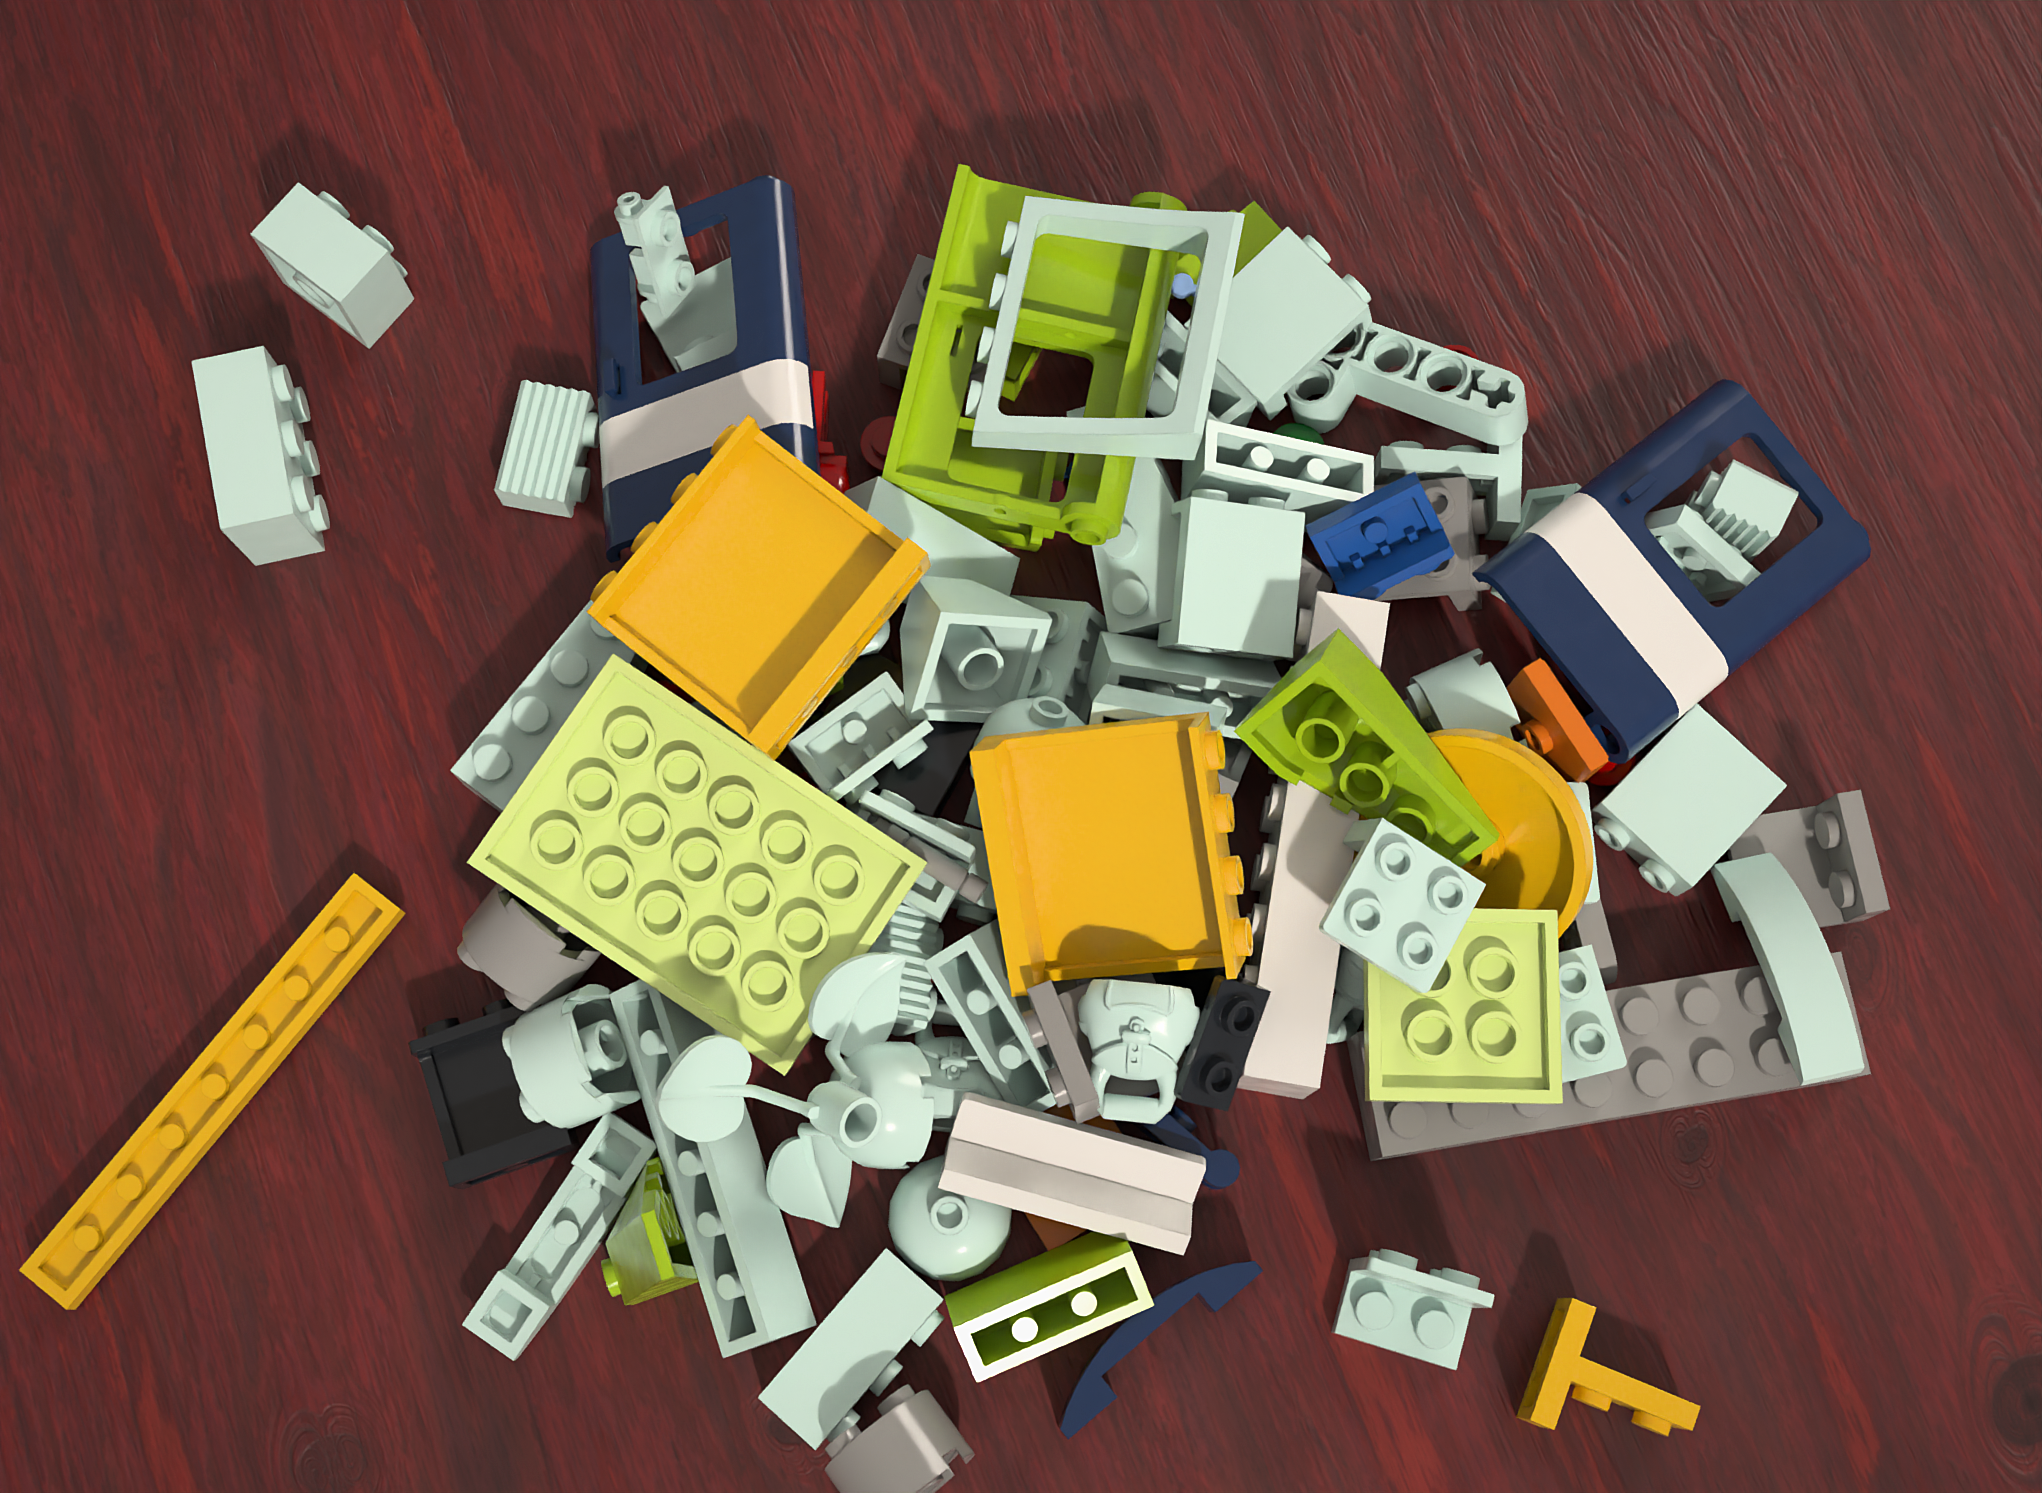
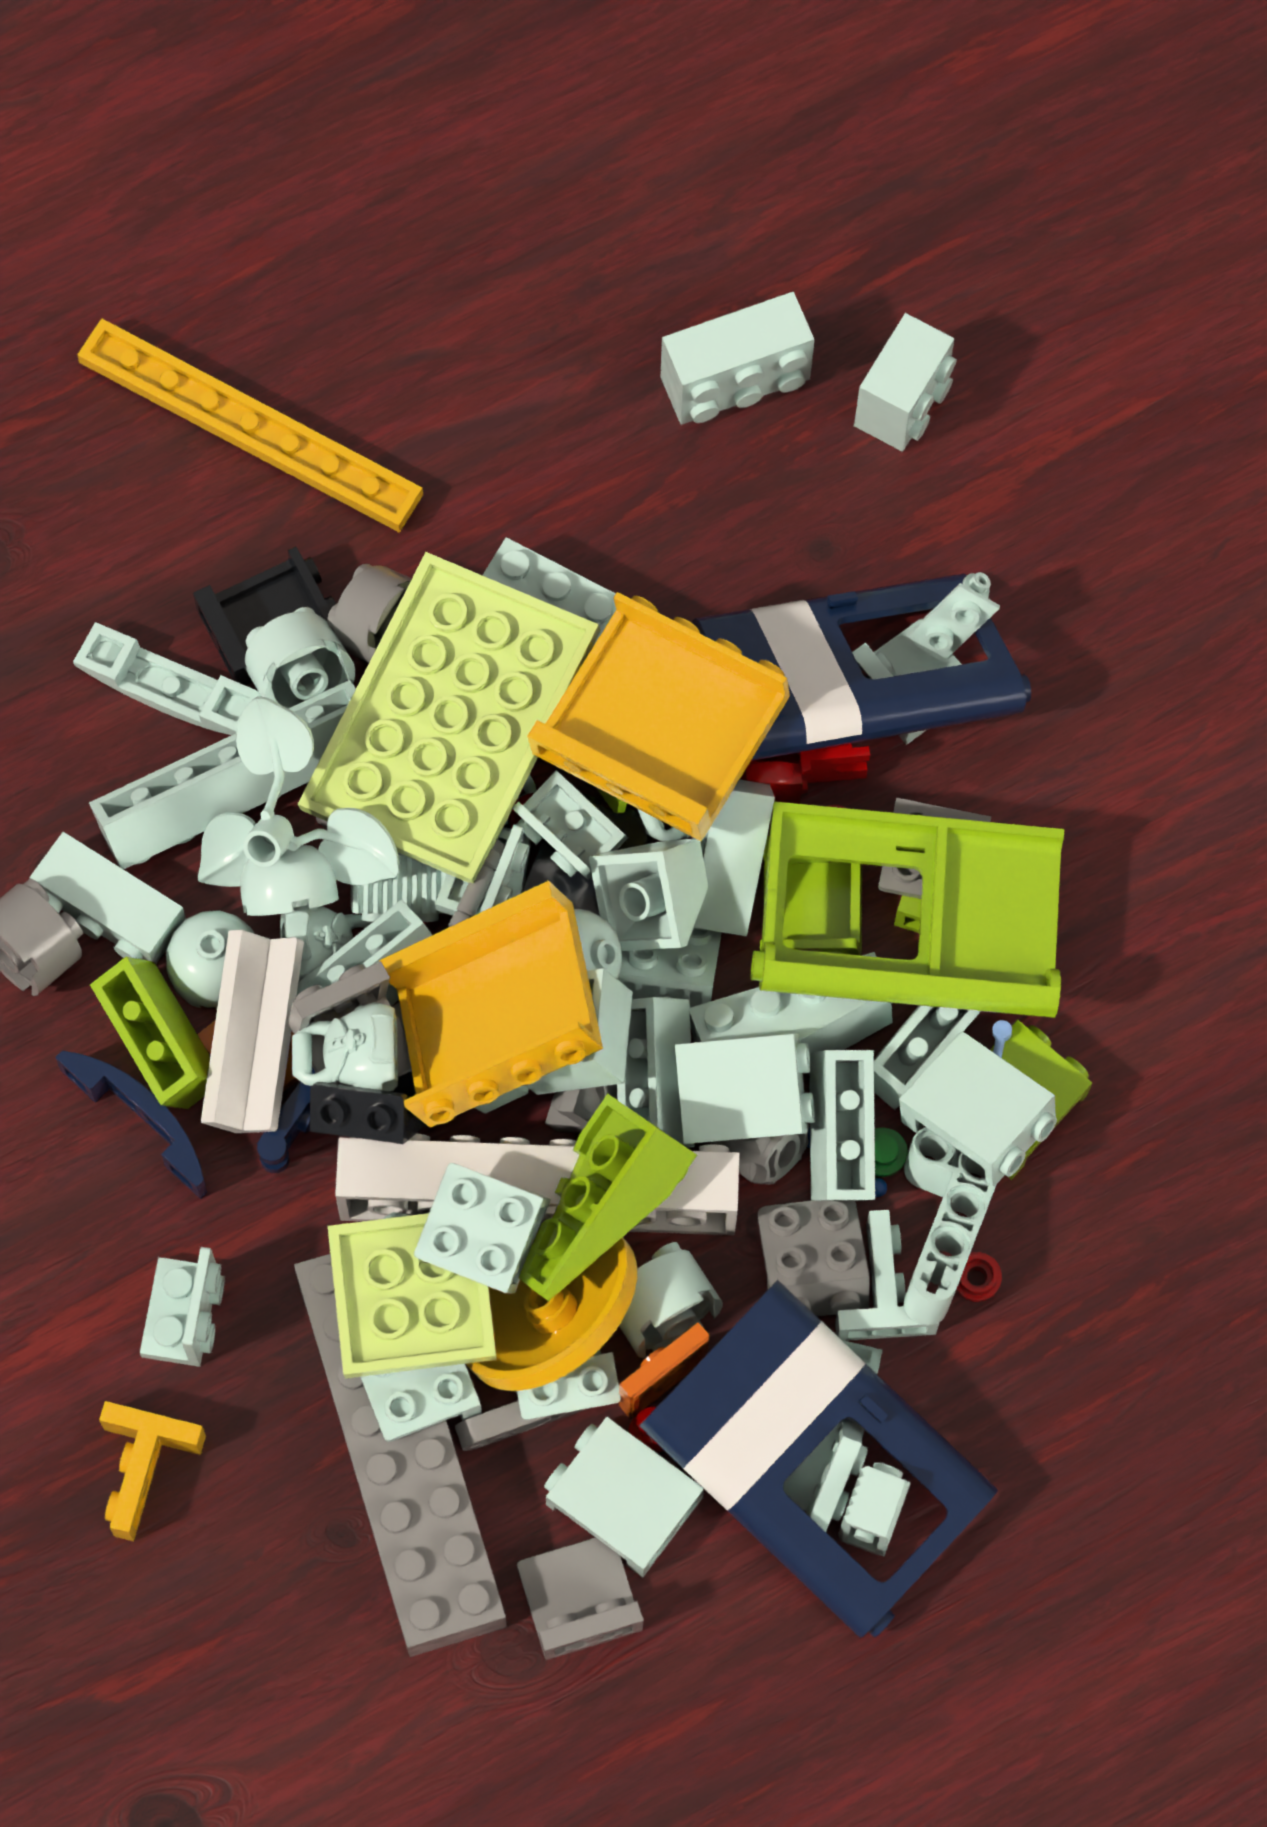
camera: 85 degrees right, 5 degrees down
(548, 449) = (783, 568): light aqua brick -> none
(648, 1243) = (168, 734): lime wedge -> none
(1208, 235) = (918, 1017): light aqua windscreen -> none
(1381, 539) = (796, 1206): blue bracket -> none
(1796, 965) = (486, 1569): light aqua slope -> none

